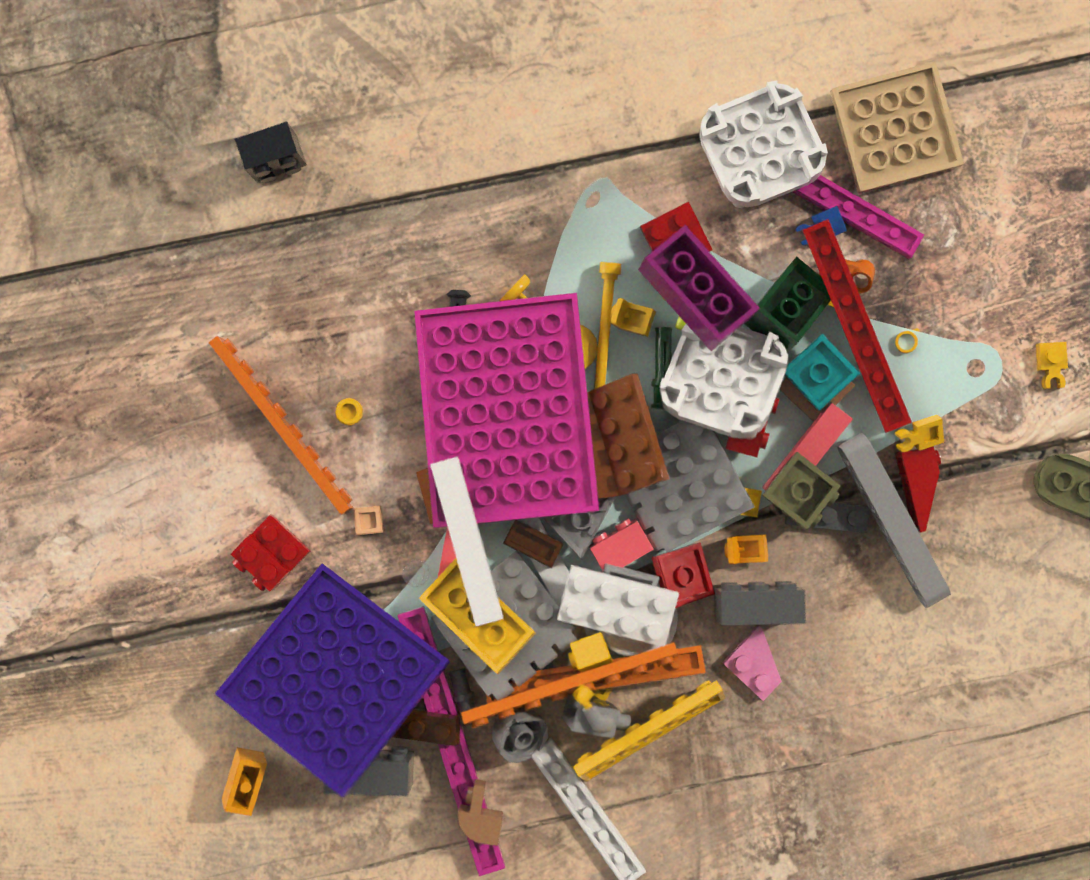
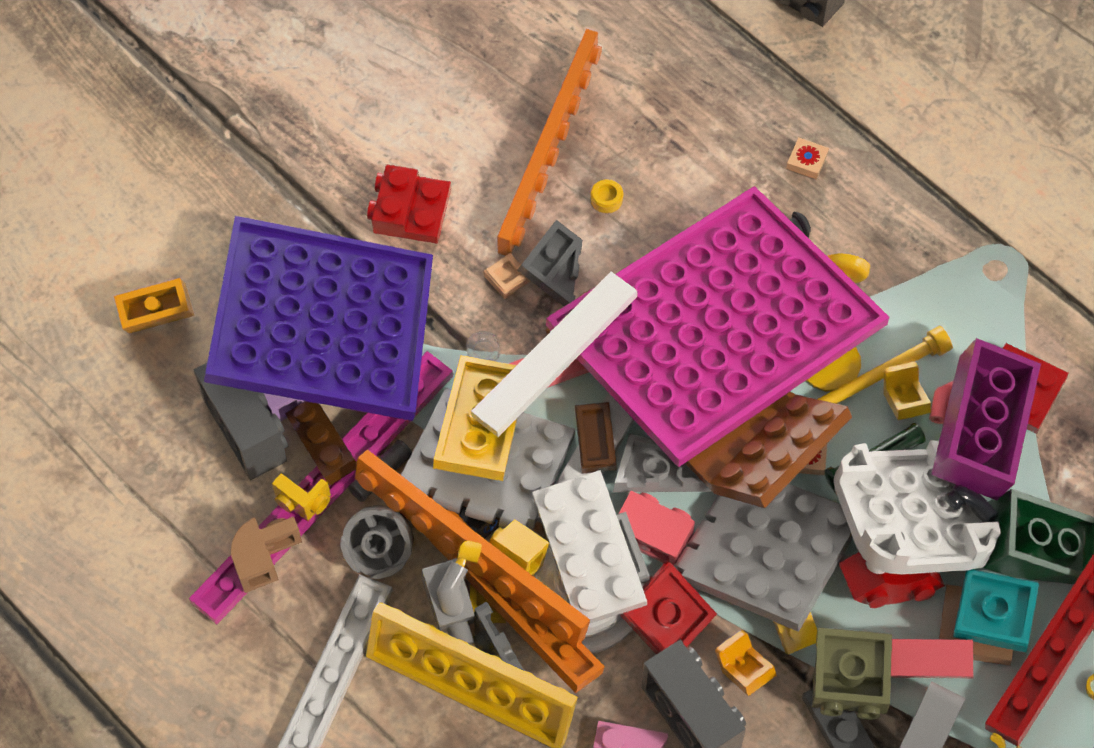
camera: 60 degrees right, 25 degrees down
(381, 483) = (555, 263): none -> dark grey wing
(408, 253) = (807, 158): none -> light nougat tile
(456, 772) = (293, 498): none -> yellow bracket
(632, 700) = (489, 639): none -> dark grey wing
(650, 295) = (940, 403): none -> coral arm
(742, 335) = (974, 501): none -> black arm

